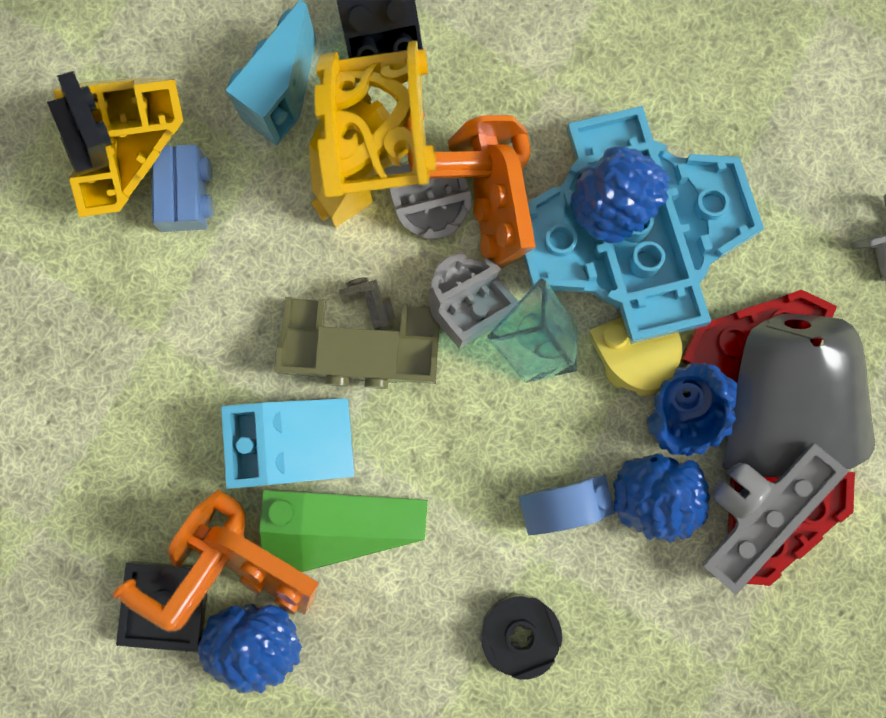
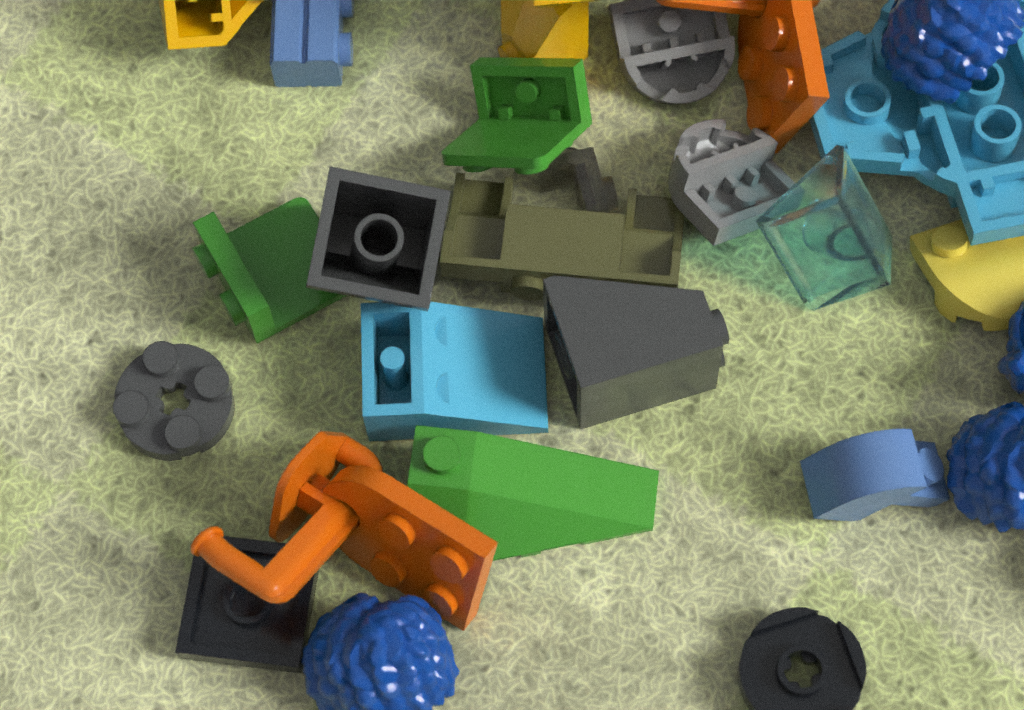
camera: 10 degrees right, 15 degrees down
(83, 467) = (161, 371): none -> dark grey plate
(164, 370) = (264, 267): none -> bright green bracket
(225, 371) = (378, 239): none -> dark grey slope
(330, 262) = (525, 114): none -> bright green bracket
(403, 425) = (631, 344): none -> dark grey slope

